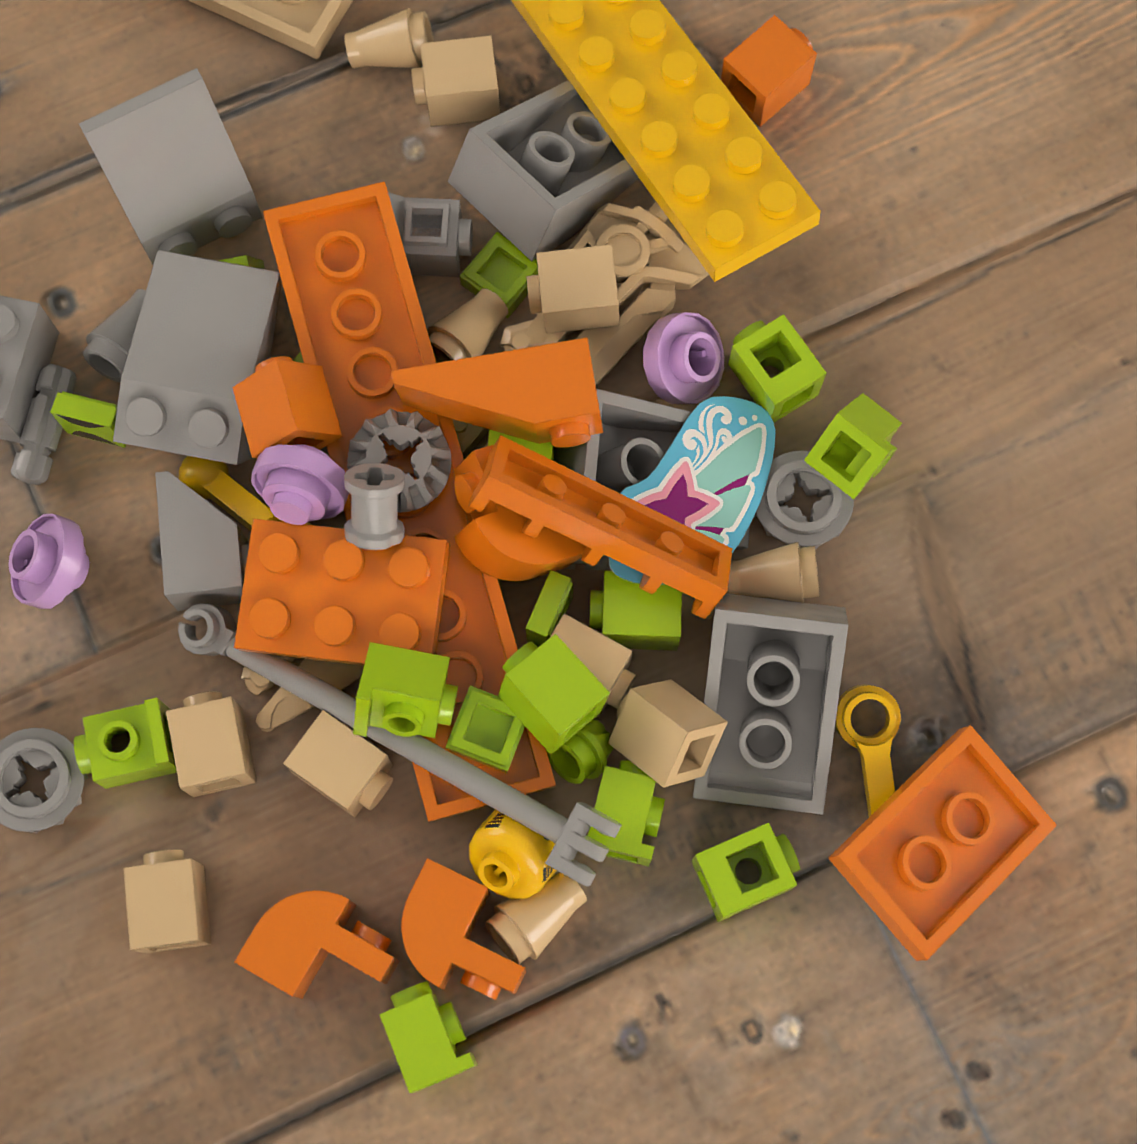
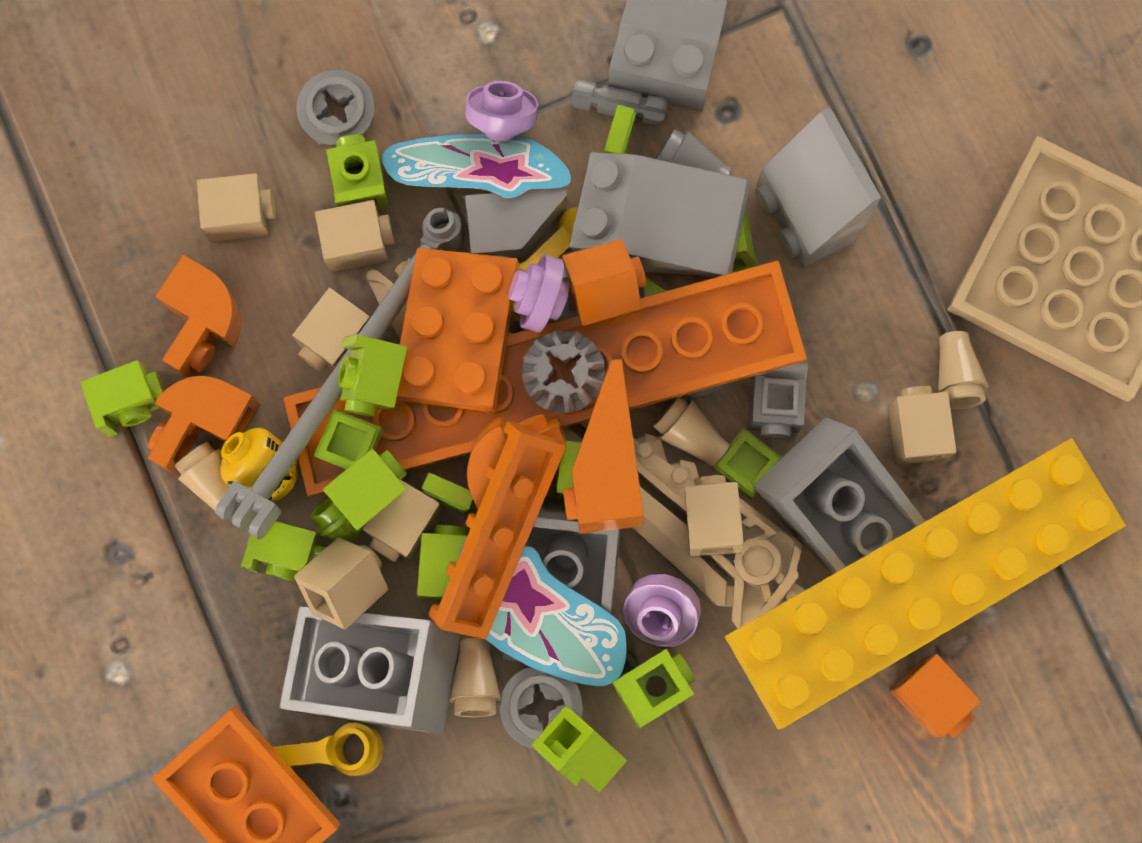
camera: 90 degrees right, 5 degrees up
(118, 593) = (476, 163): none -> sticker
(374, 506) = (523, 348): light grey bush -> none
(717, 873) = (217, 633): lime brick -> none

